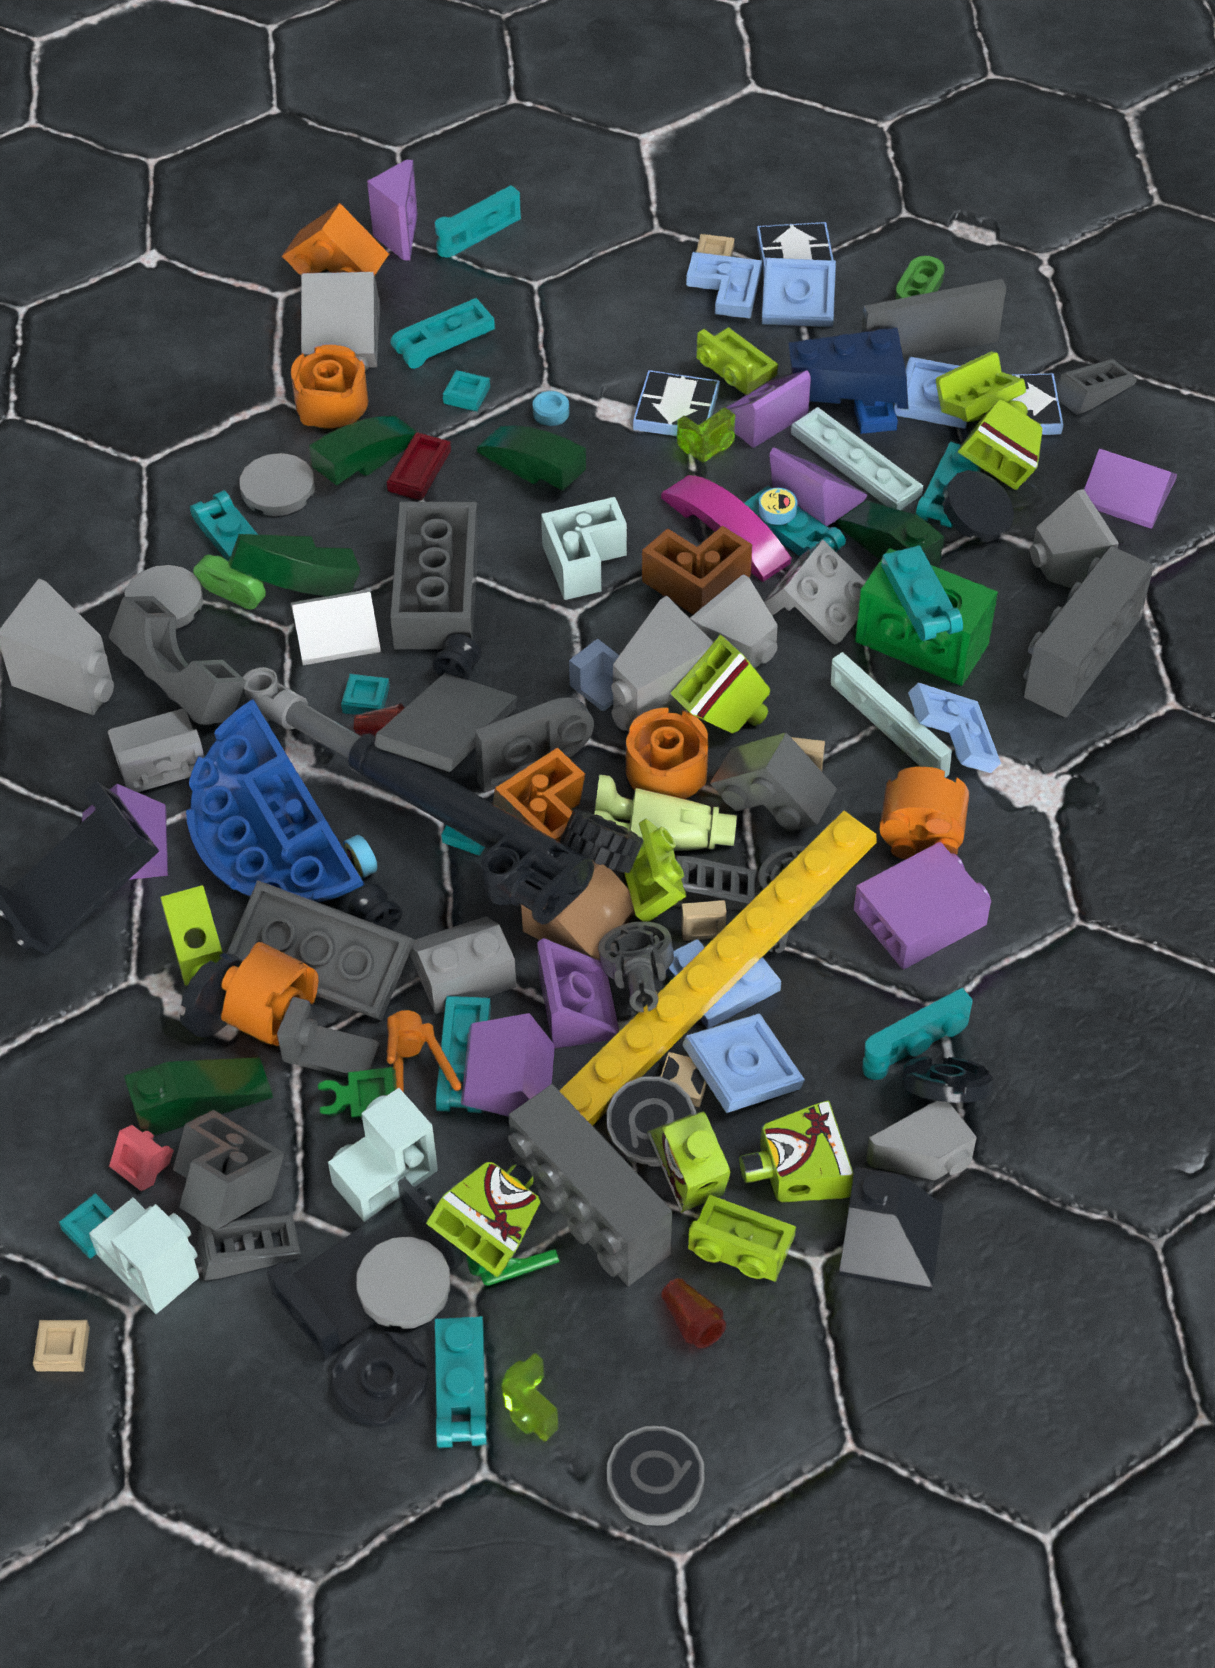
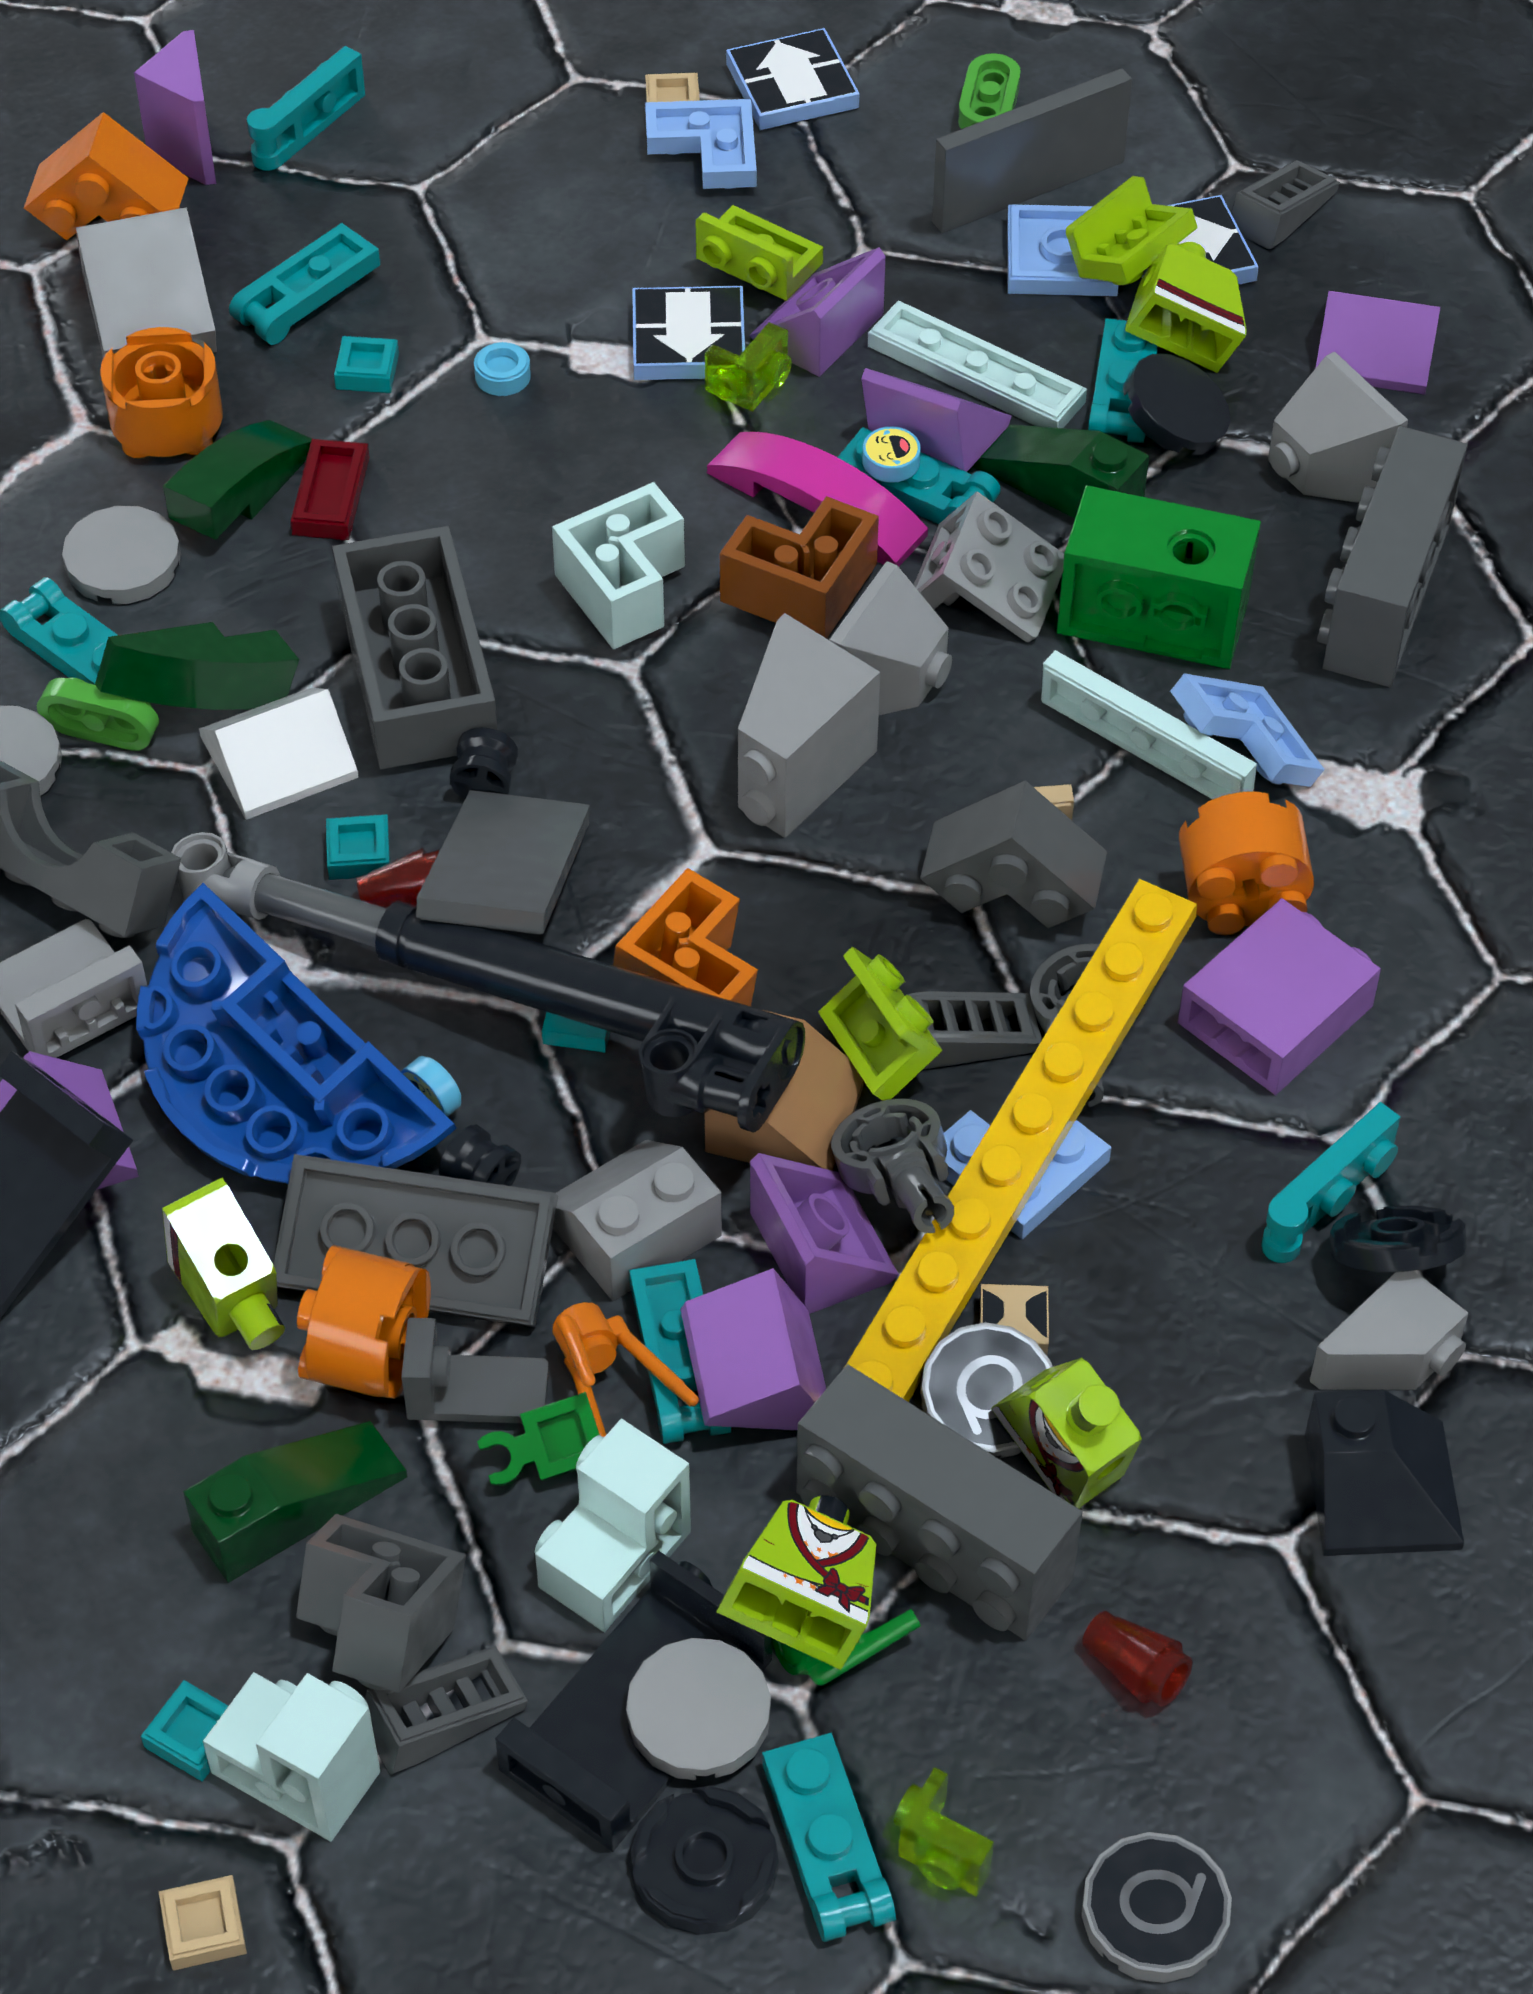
camera: 15 degrees left, 0 degrees up
(139, 1157) = (235, 1611): coral tile -> none
(206, 998) = (275, 1344): black tile -> none
(527, 736) = (635, 865): dark grey tile -> none
(535, 455) = (503, 441): dark green slope -> none
(593, 673) = (701, 750): sand blue panel -> none
(602, 840) = (800, 991): black tyre -> none
(667, 753) = (844, 850): orange brick -> none
(686, 821) = (904, 937): yellowish green piece -> none
(703, 920) = (972, 1081): tan tile -> none
(724, 689) = (904, 733): lime torso -> none
(741, 1238) = (1174, 1533): lime bracket -> none
(743, 1062) = (1094, 1277): light blue tile -> none
(798, 292) = (817, 137): light blue tile -> none
(802, 1157) = (1225, 1395): torso -> none
(853, 367) = (940, 232): dark blue wedge -> none
(876, 418) = (983, 297): blue tile -> none
(921, 593) = (1156, 542): teal plate -> none

